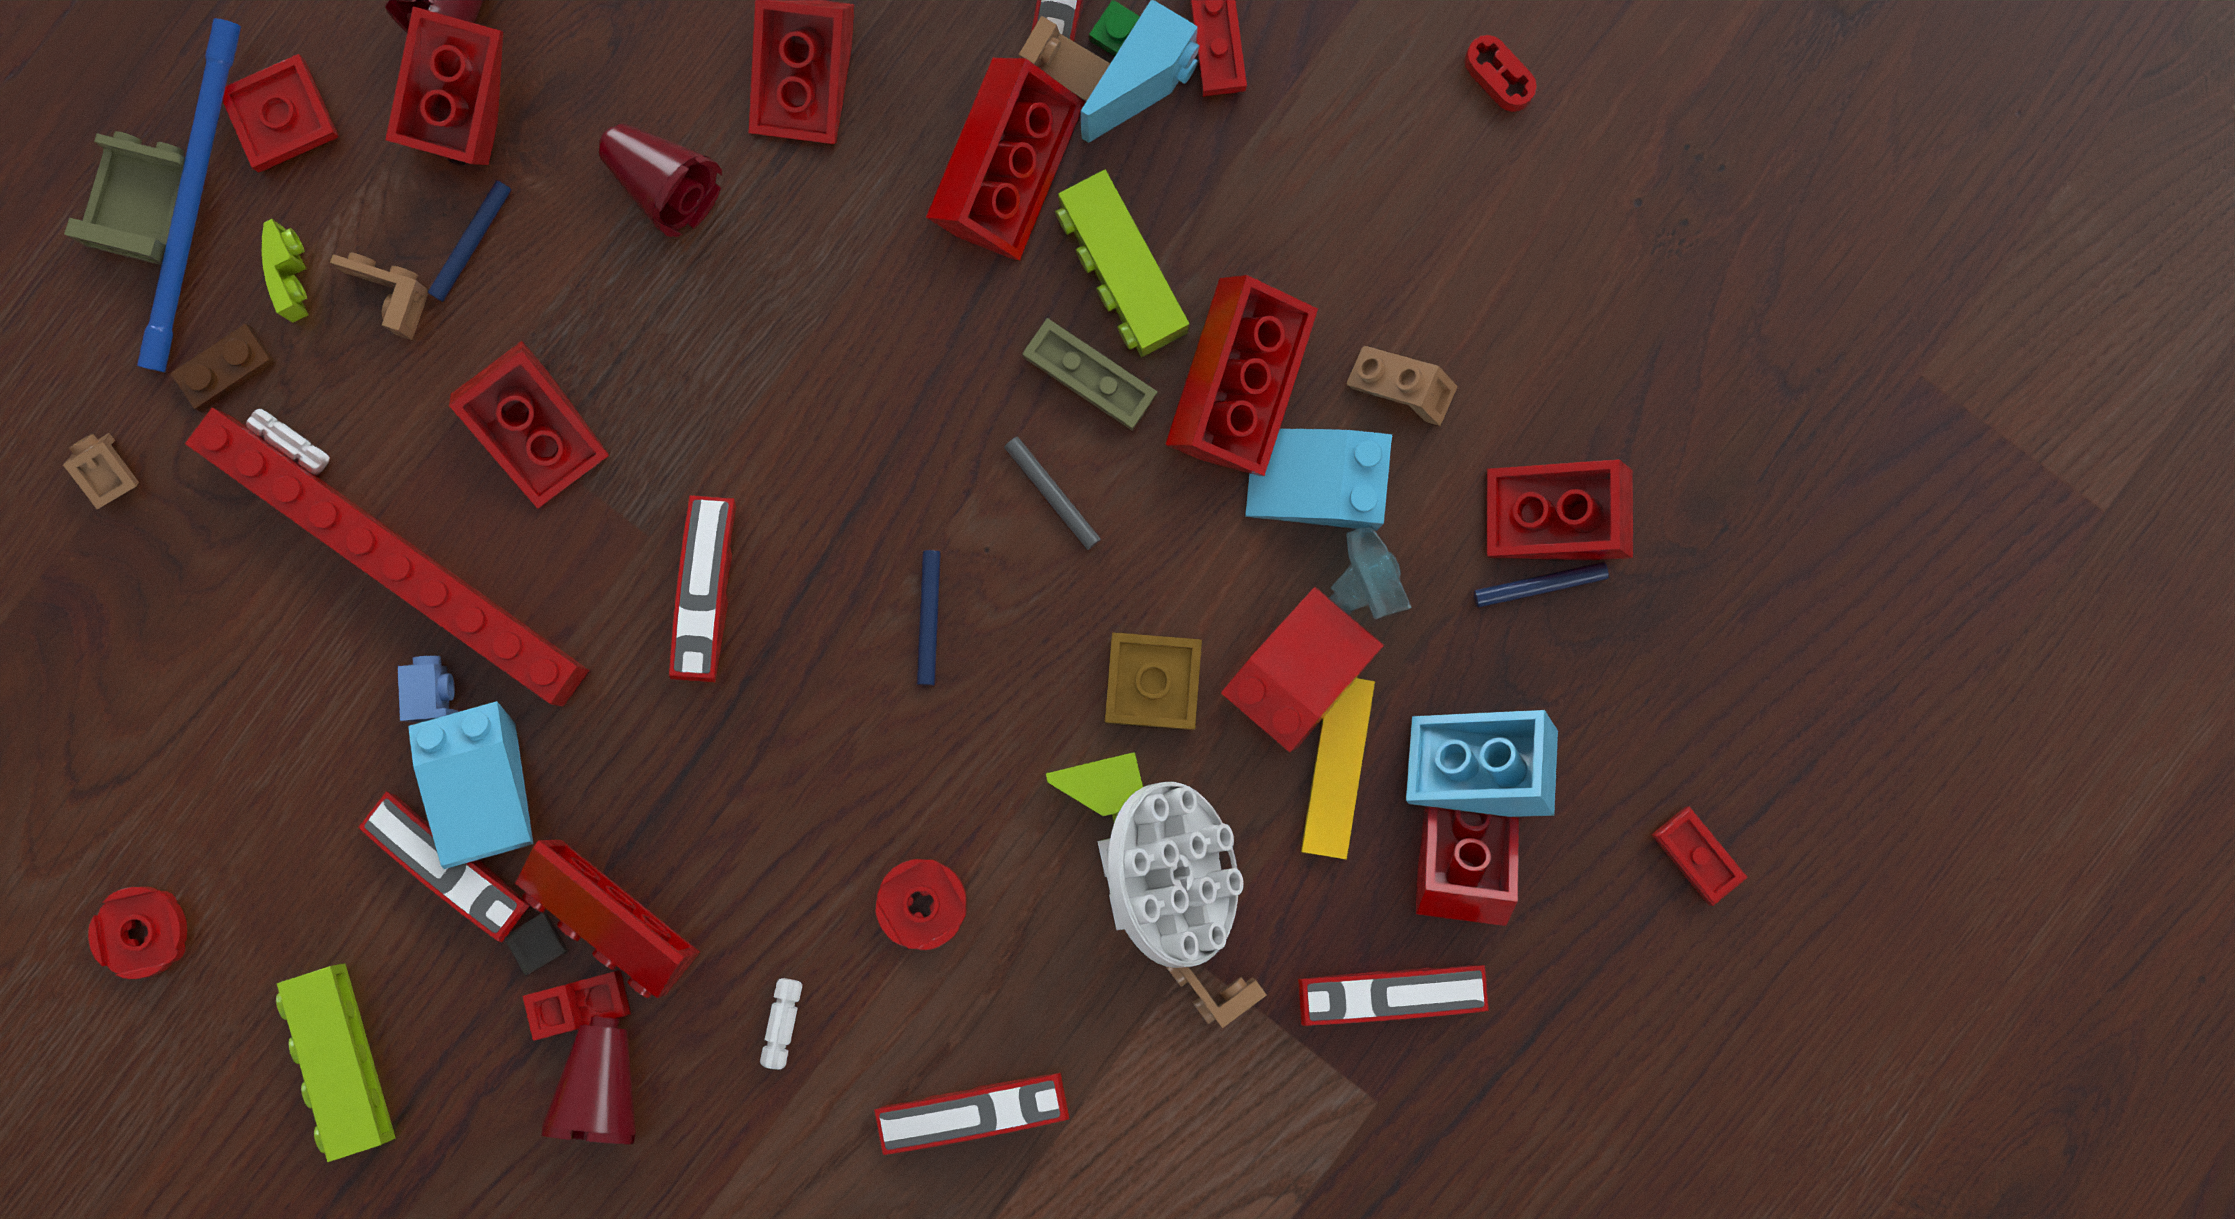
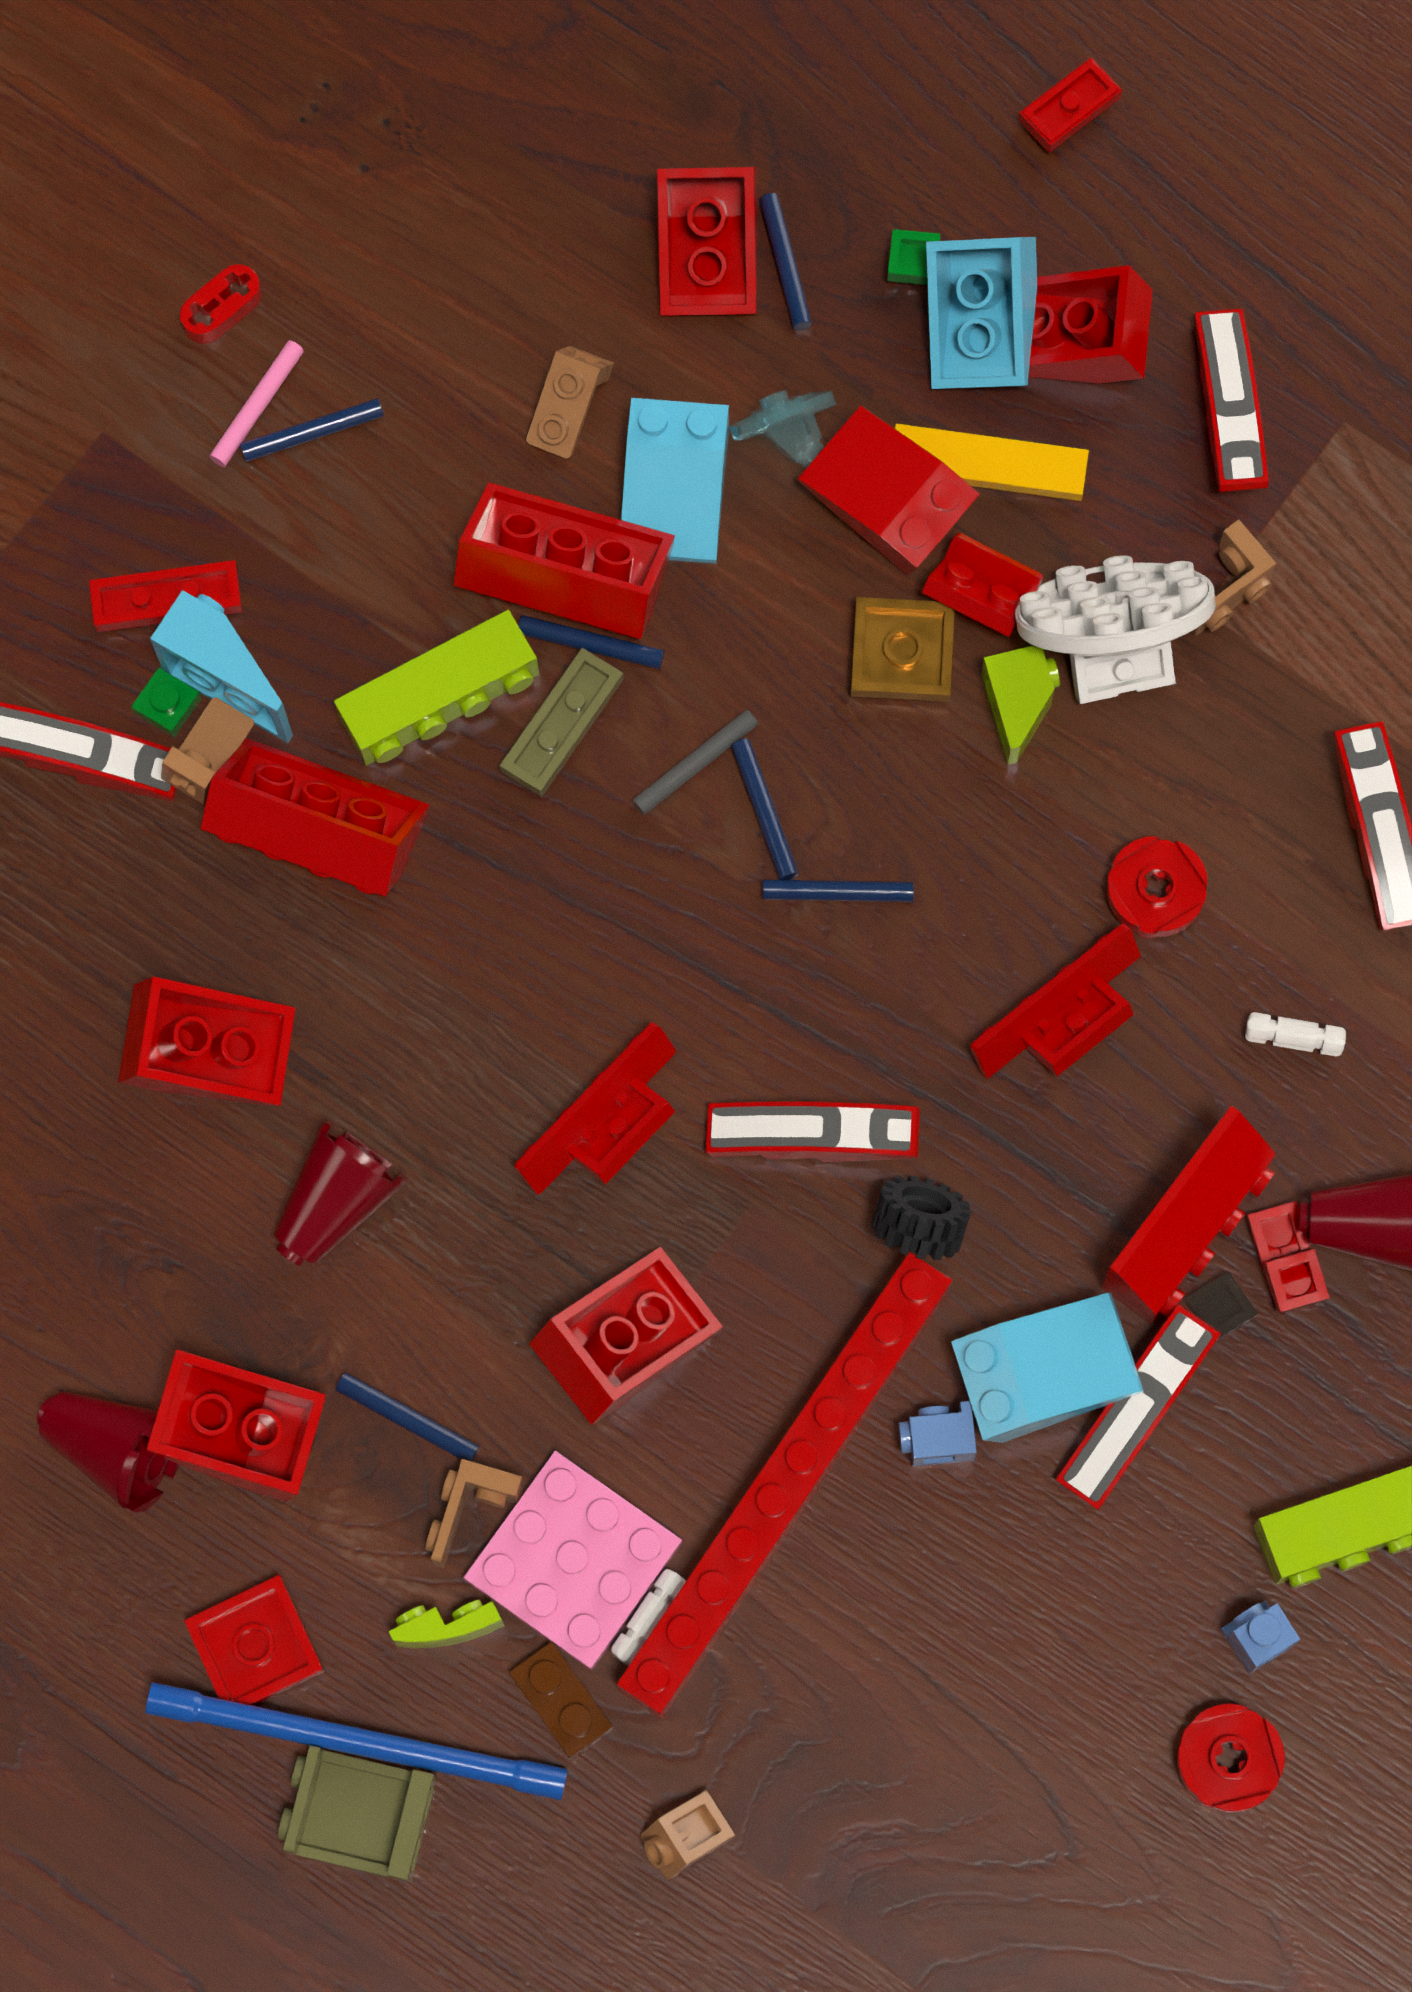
camera: 85 degrees left, 10 degrees down
(237, 963) = (1260, 1635): none -> medium blue brick
(340, 379) = (573, 1560): none -> bright pink plate
(592, 673) = (921, 1217): none -> black tyre
(718, 411) = (608, 1119): none -> red bracket
(800, 817) = (1066, 1013): none -> red bracket
(1006, 554) = (764, 809): none -> dark blue bar
(1168, 402) = (591, 642): none -> dark blue bar
(1210, 753) = (981, 583): none -> red bracket
(1377, 155) = (312, 430): none -> dark blue bar
(1403, 106) = (256, 403): none -> bright pink bar
(1544, 695) = (909, 256): none -> green plate

